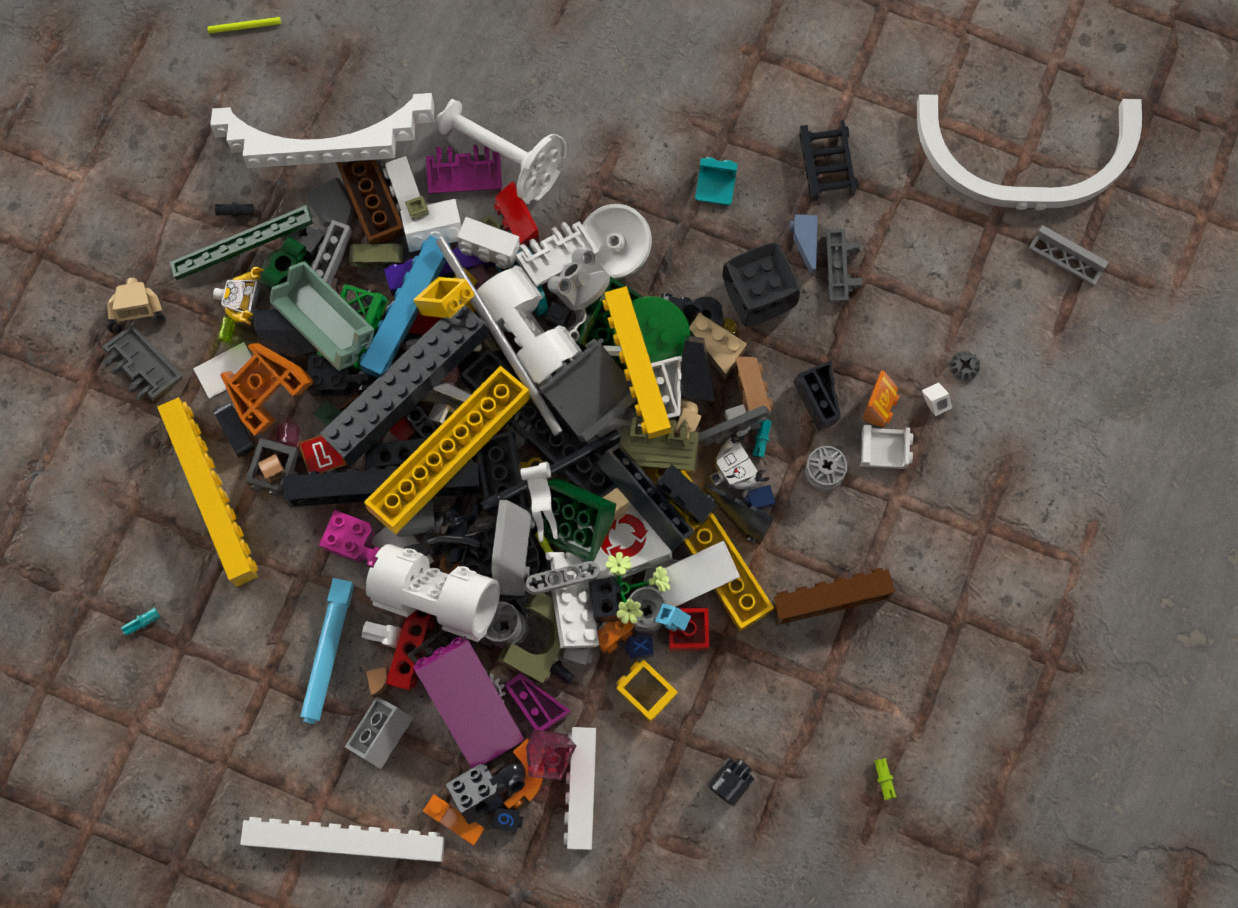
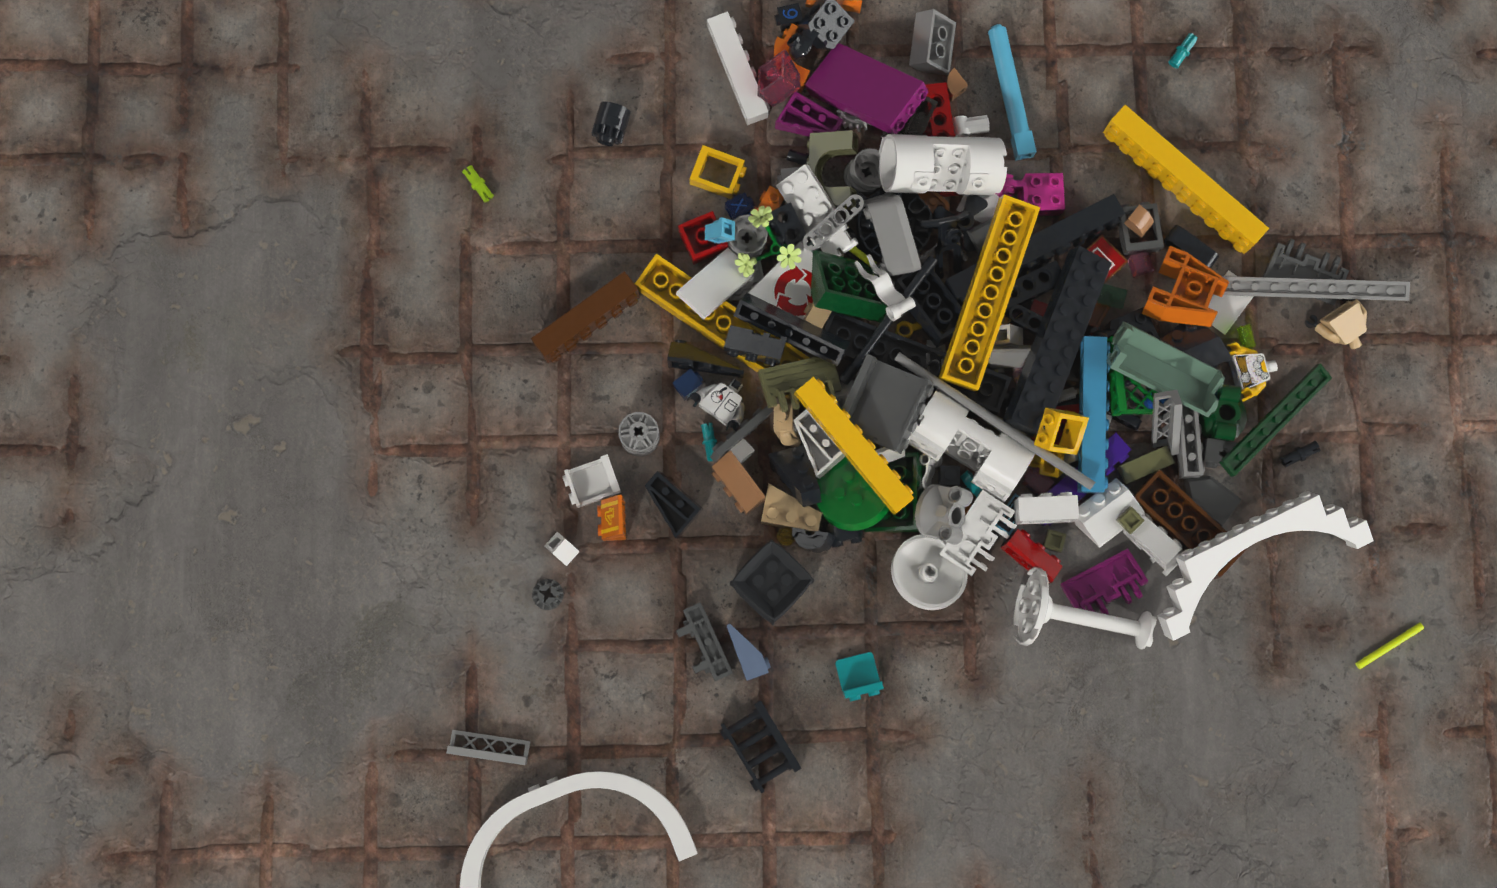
camera: 150 degrees right, 5 degrees up
(141, 343) = (1317, 288): none -> light grey plate
(339, 275) = (1171, 418): none -> light grey fence

